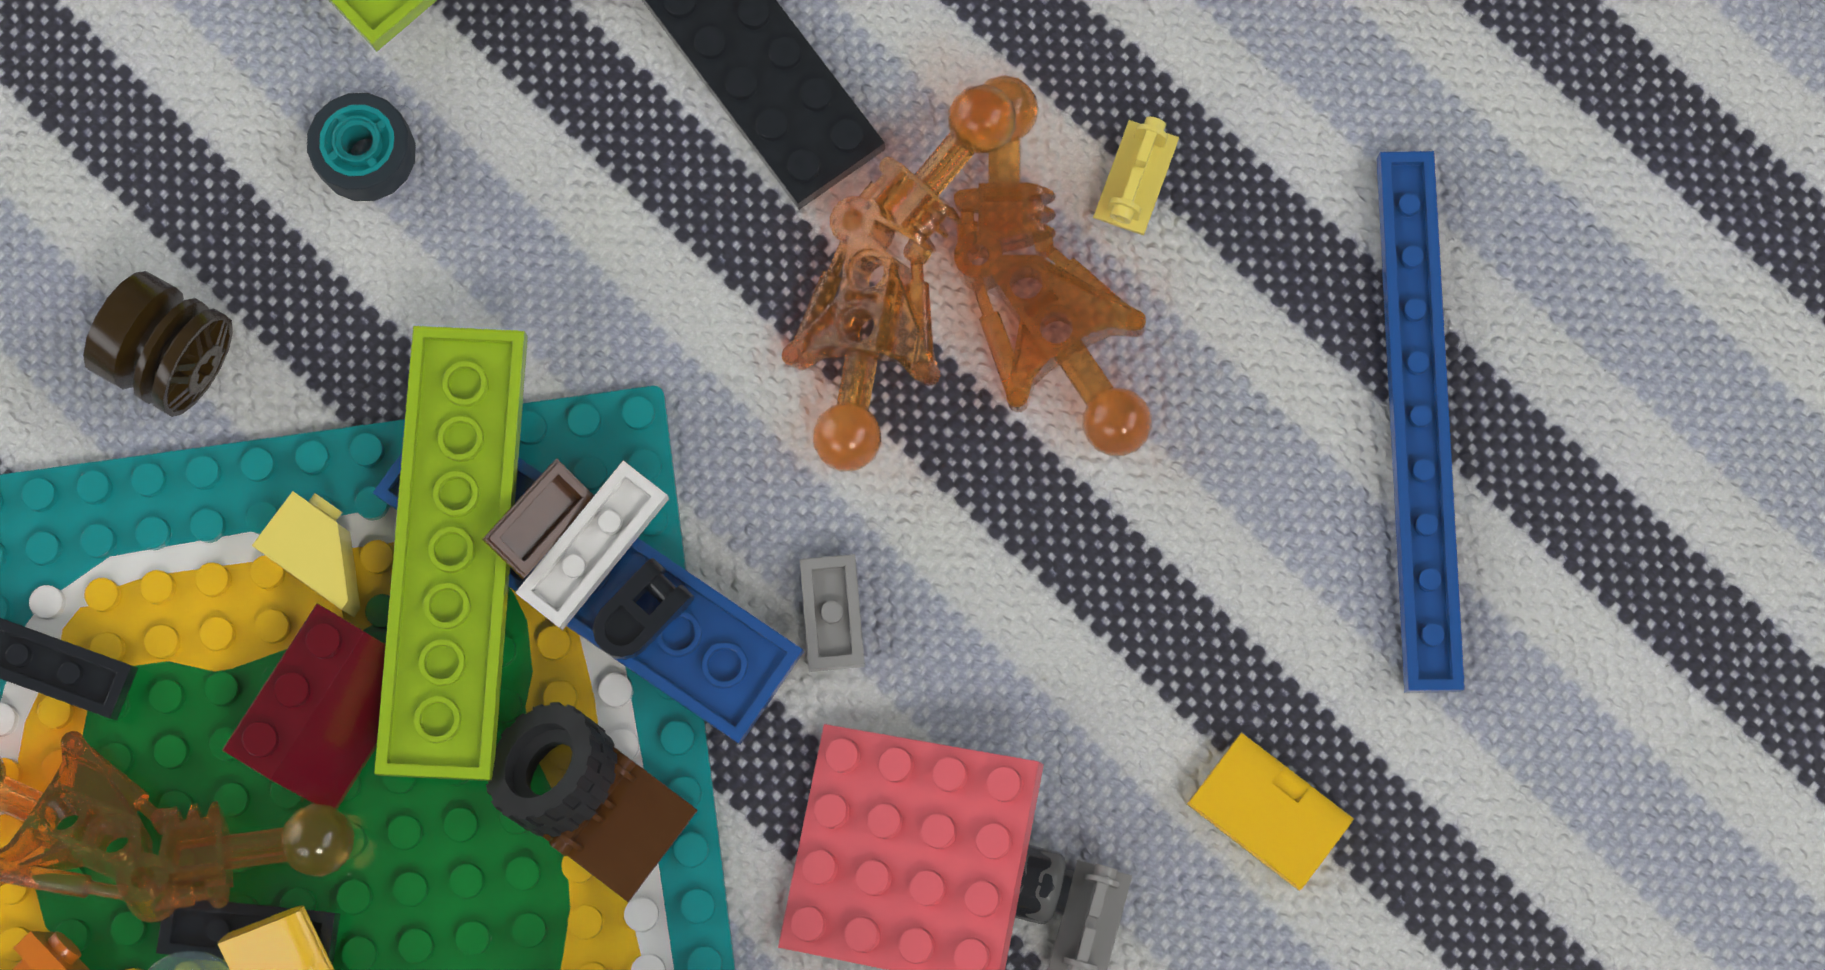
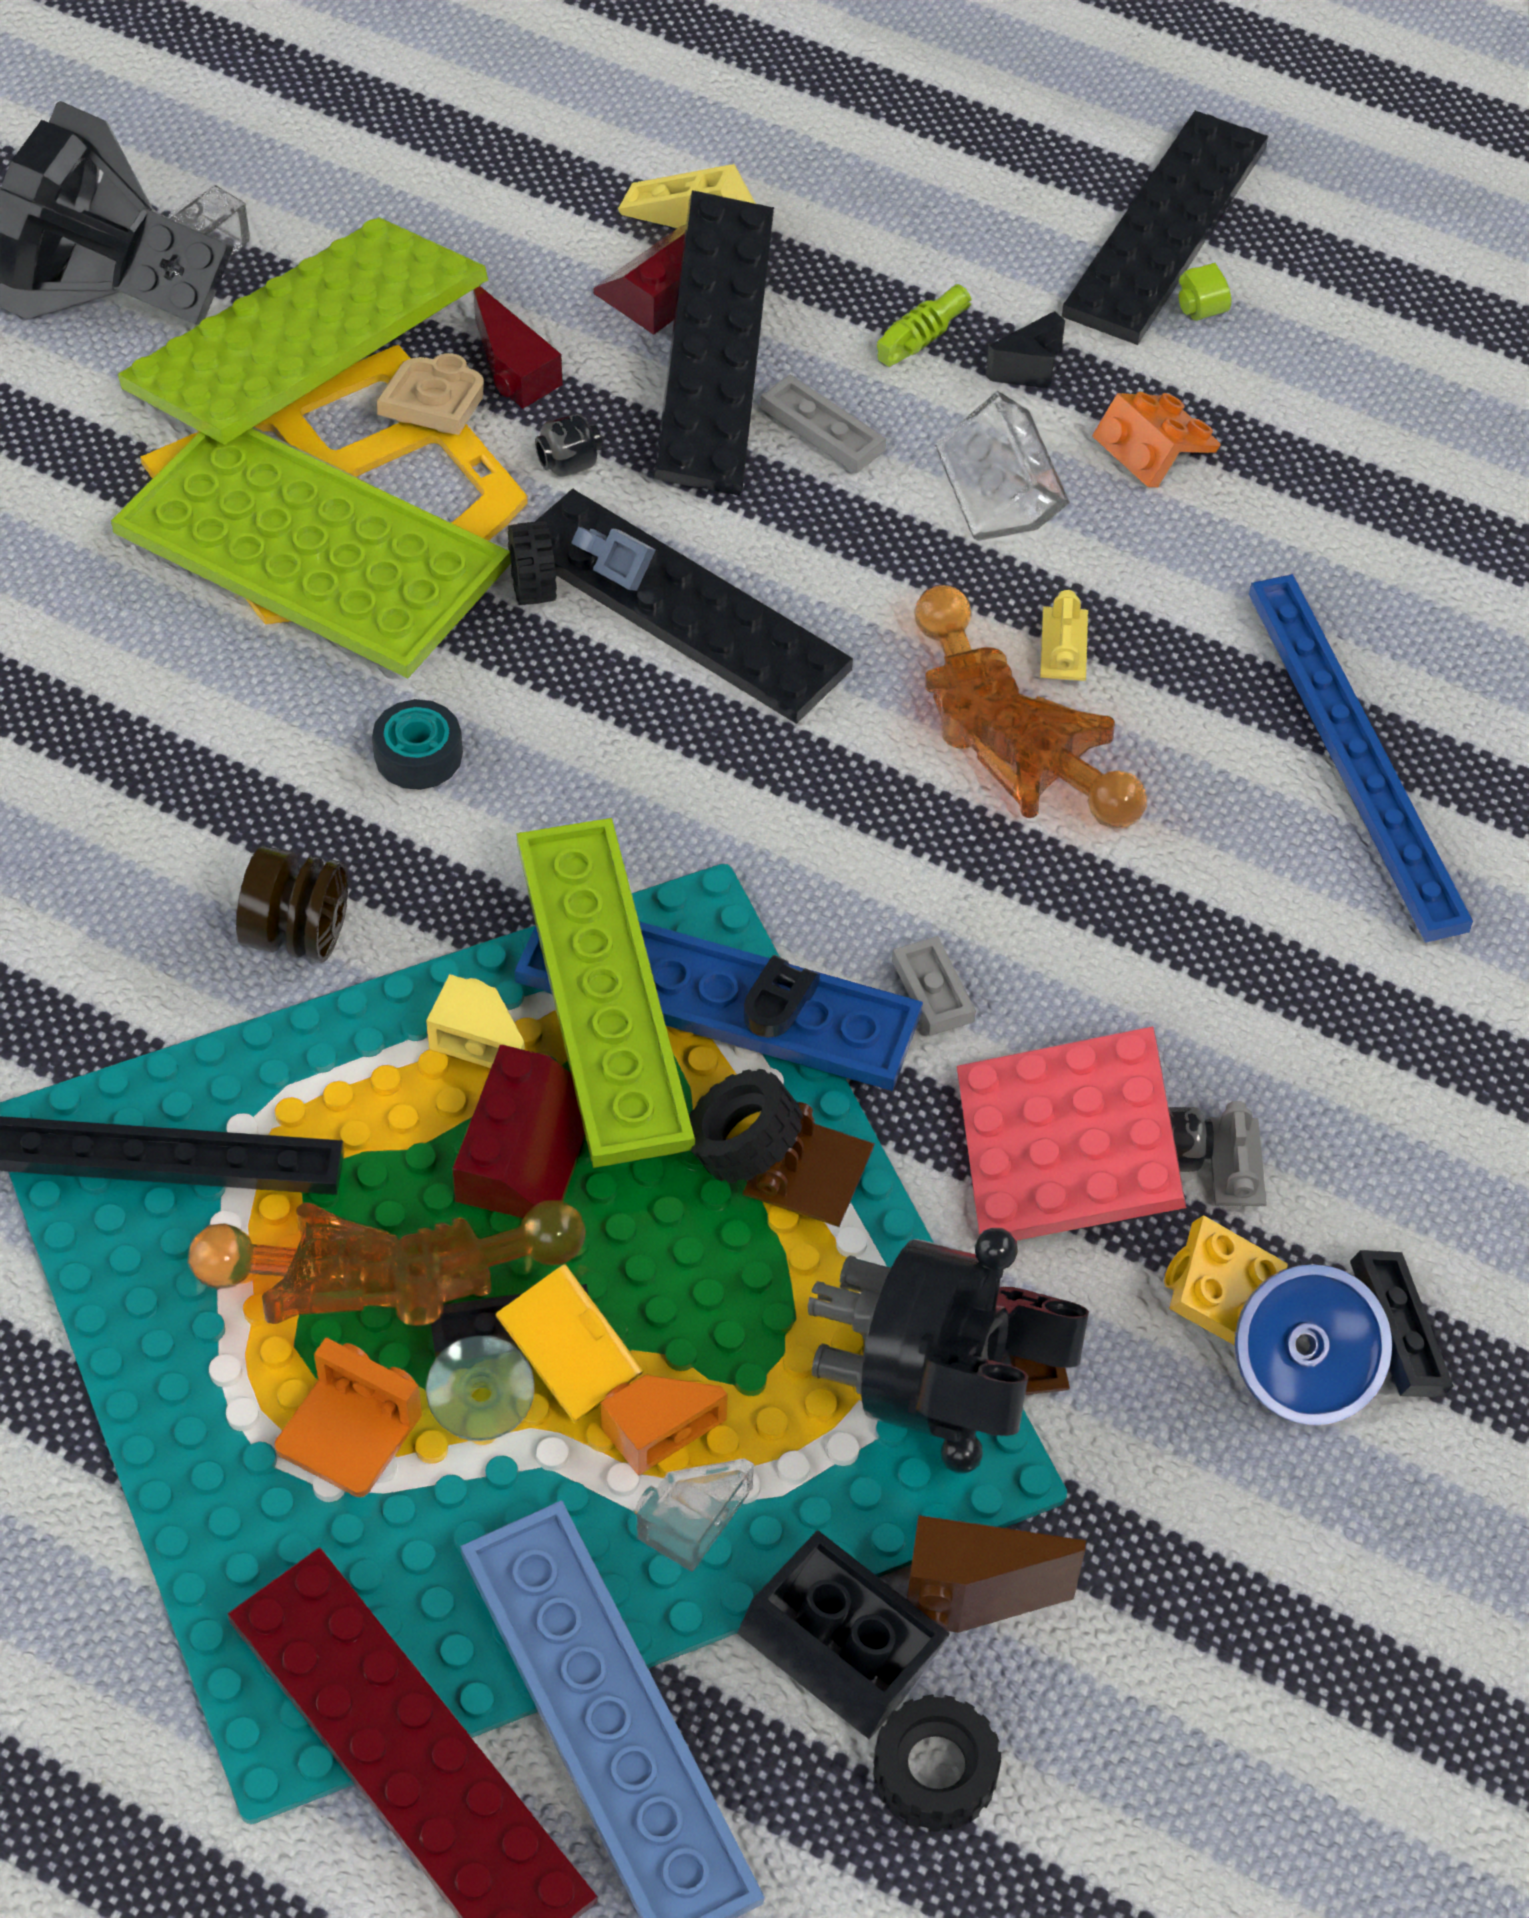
camera: 20 degrees left, 25 degrees down
(538, 518) = (670, 944): tile -> none
(592, 545) = (721, 958): white plate -> none
(899, 304) = (871, 708): clear orange piece -> none
(1270, 811) = (1351, 1048): yellow piece -> none

